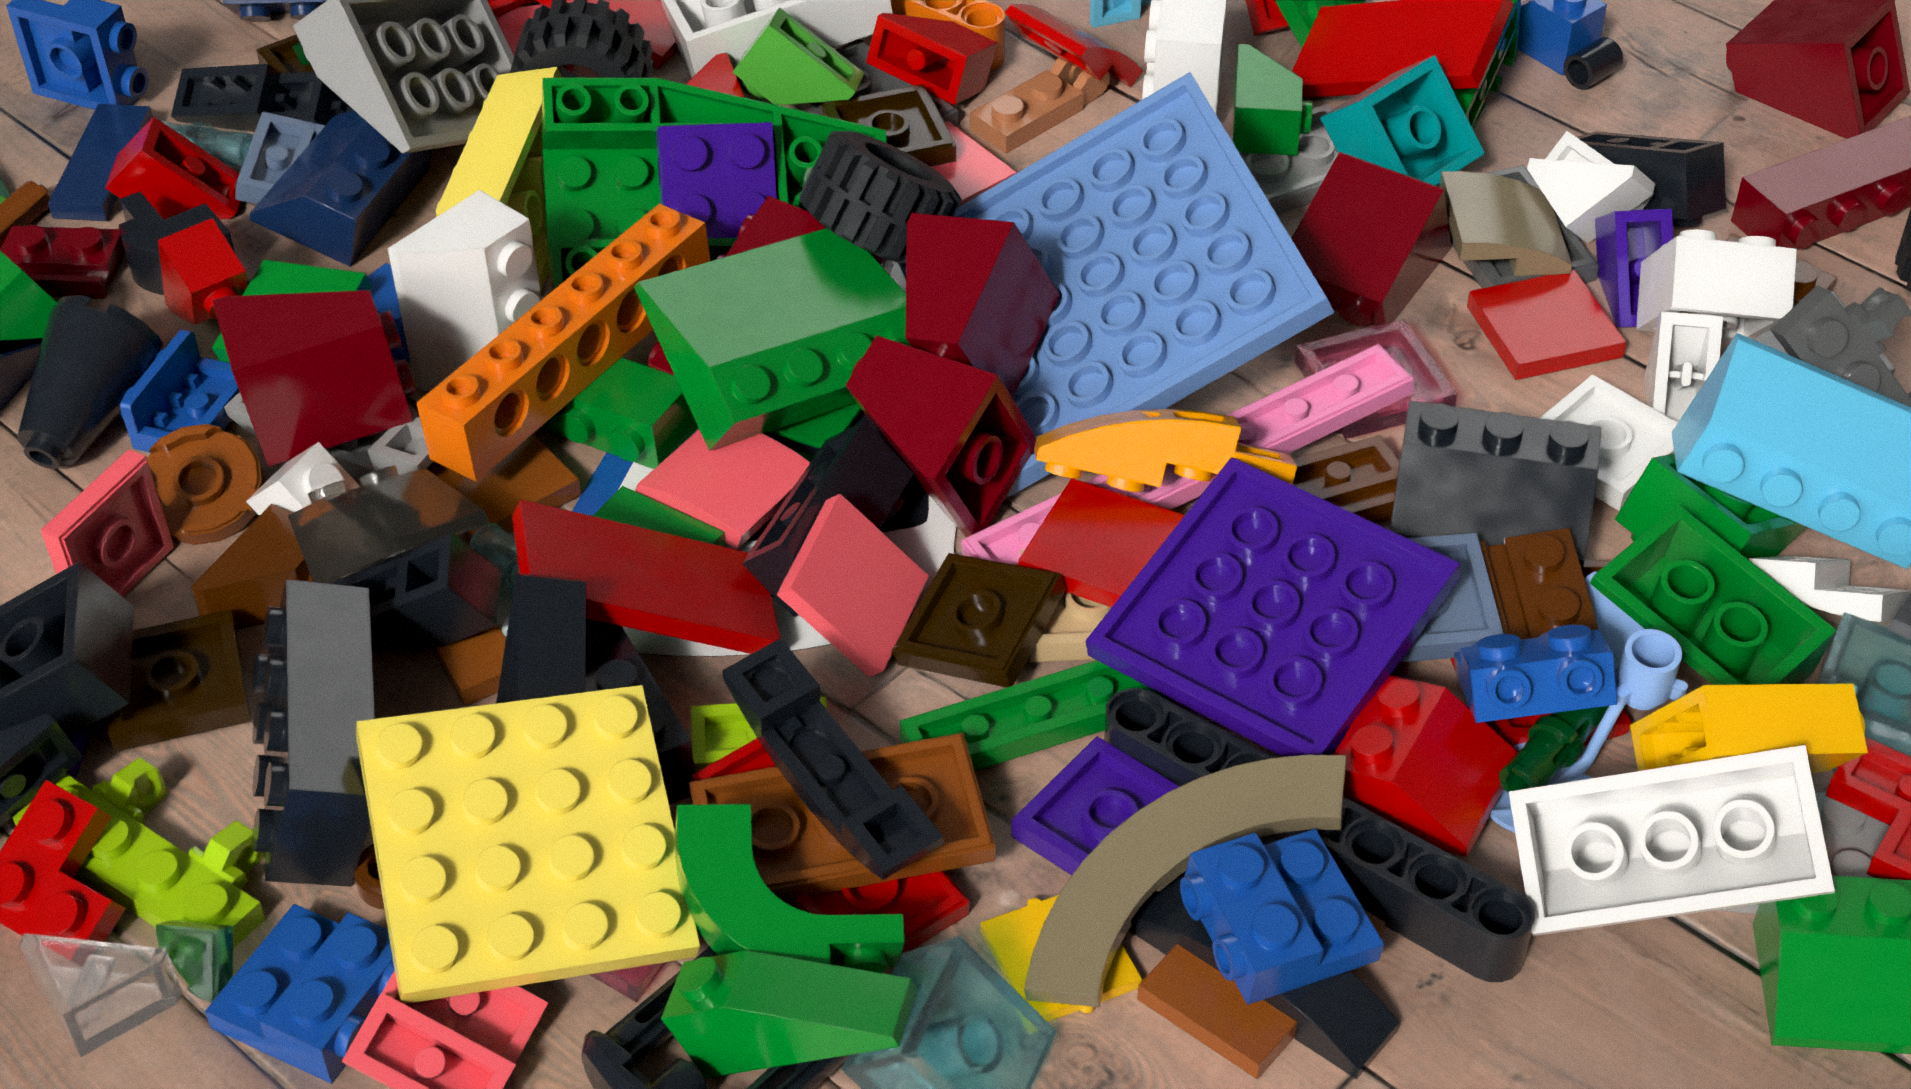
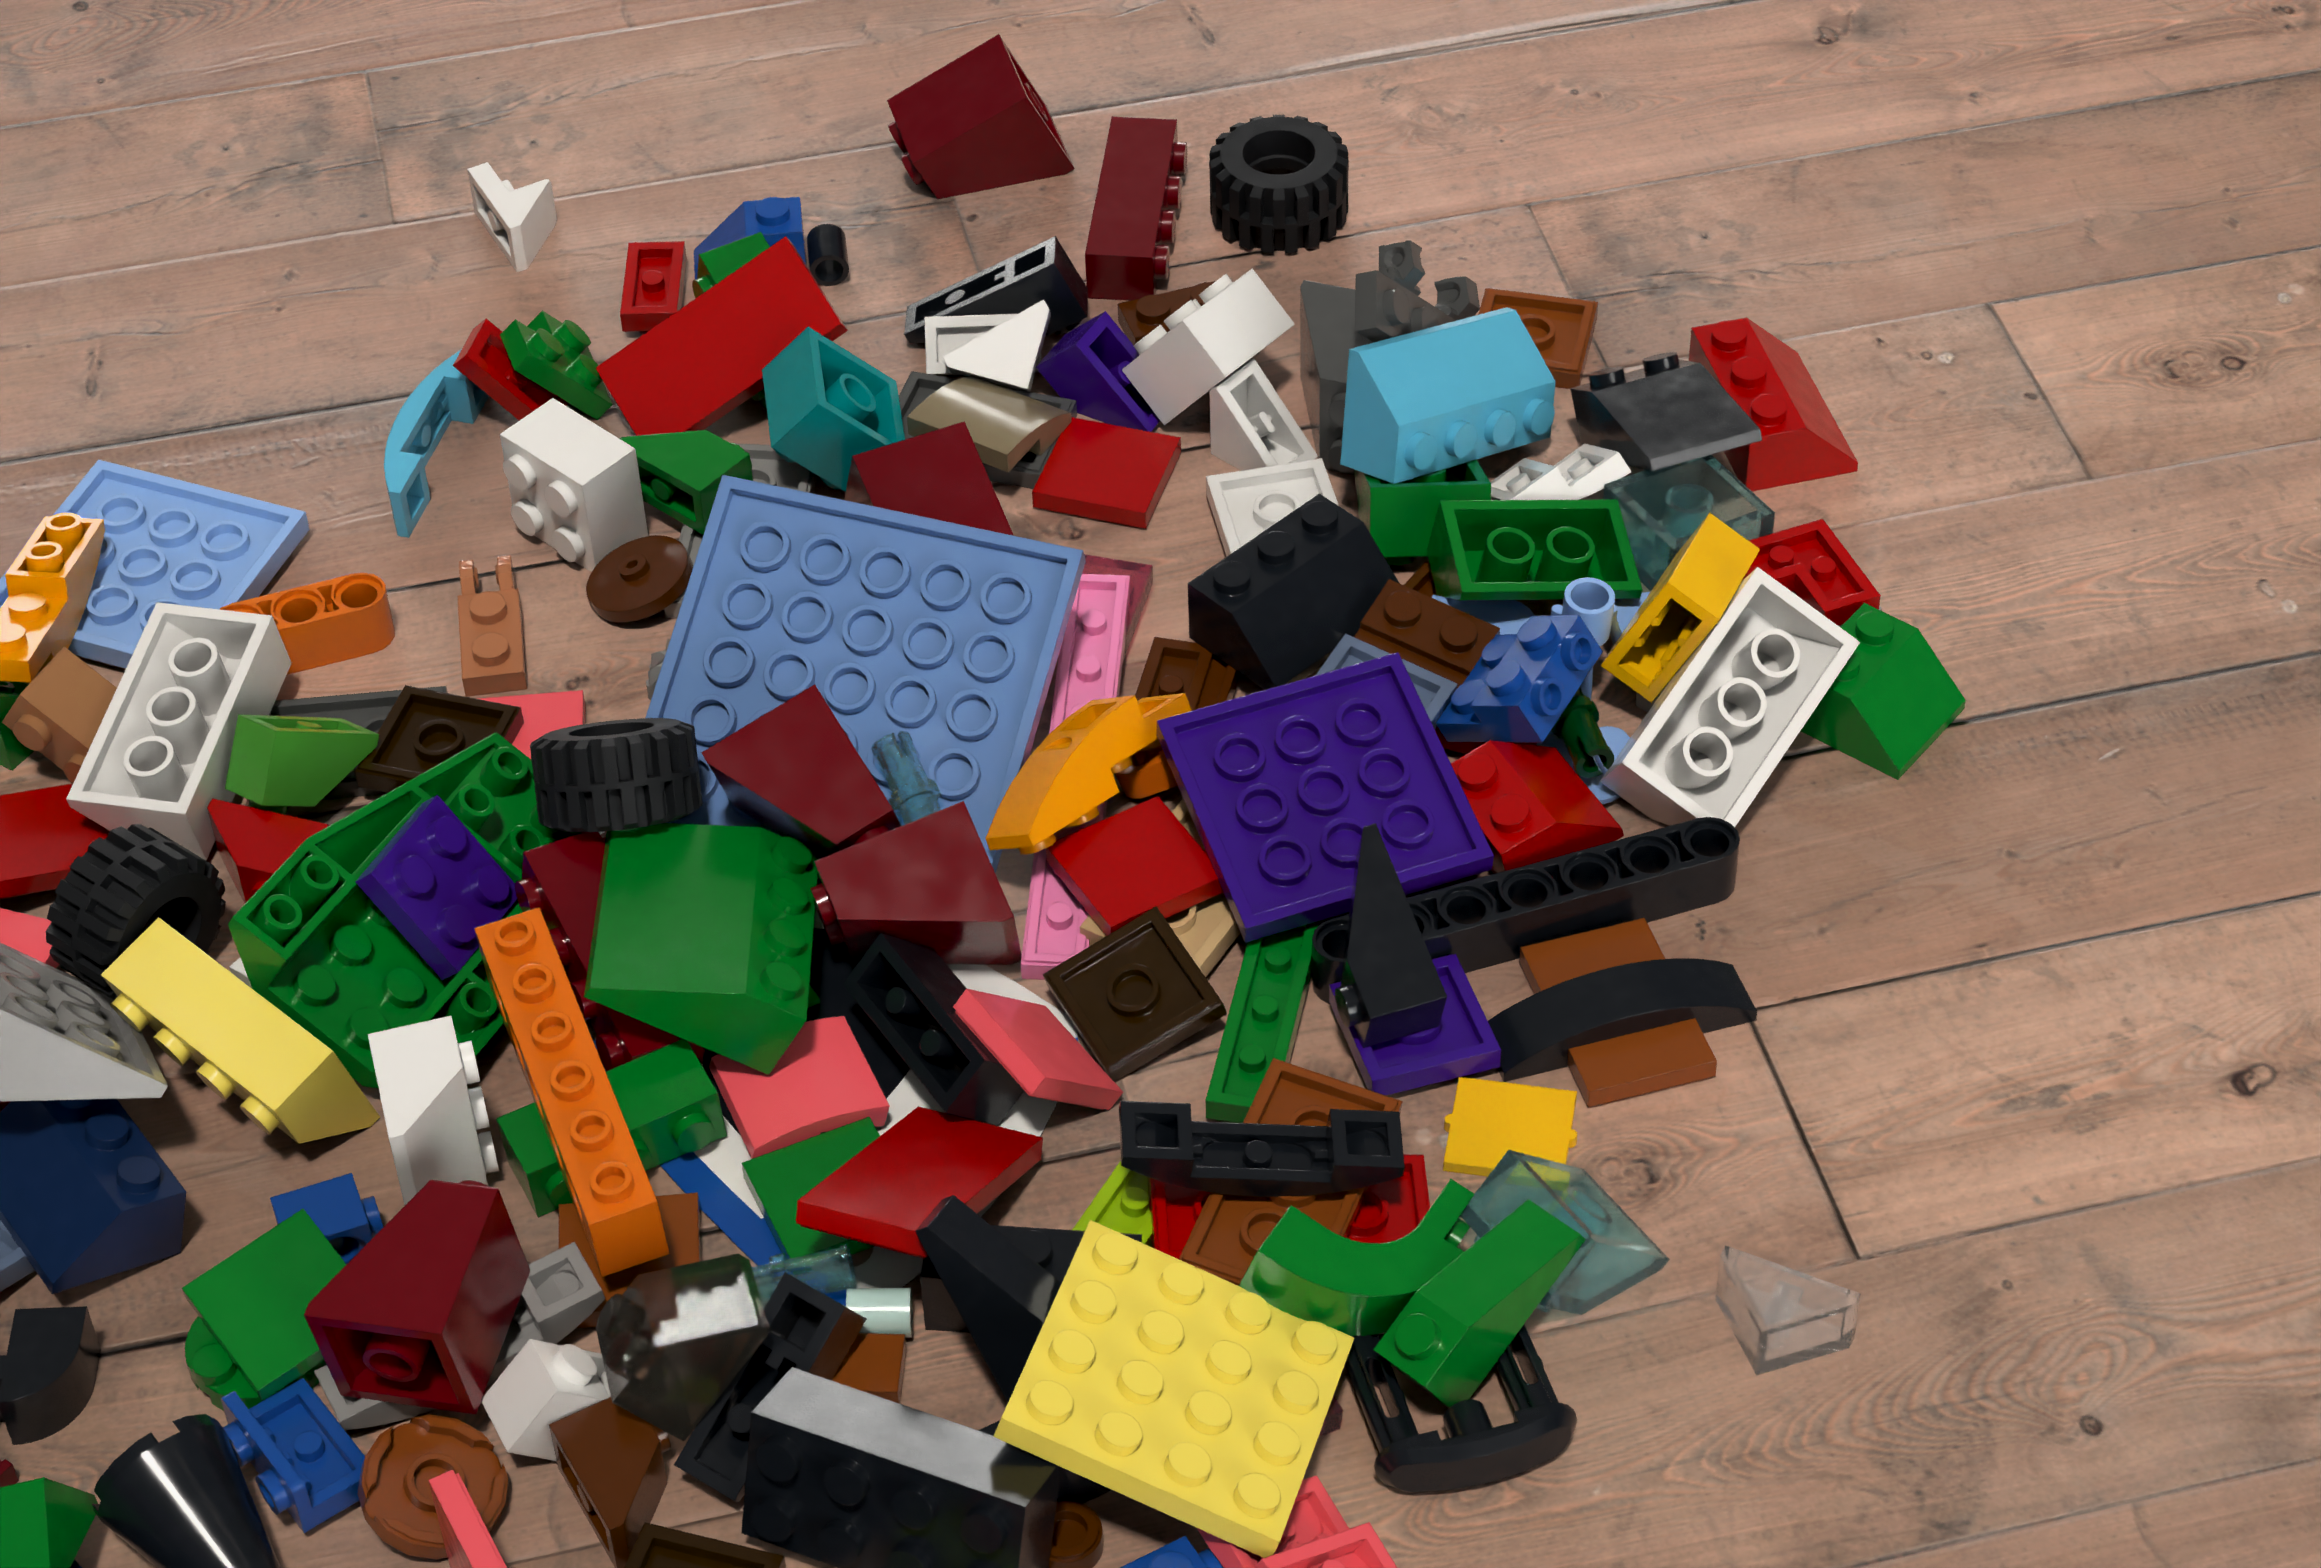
camera: 55 degrees left, 0 degrees up
(198, 269) = (147, 1356): red slope -> none
(933, 53) = (371, 657): red slope -> none
(1038, 369) = (911, 790): none -> clear light blue pin
(1072, 44) = (460, 556): red slope -> none
(1124, 734) = (1386, 970): none -> black slope
(1155, 849) = (1491, 1006): dark tan tile -> none
(1277, 913) = (1615, 962): blue plate -> none

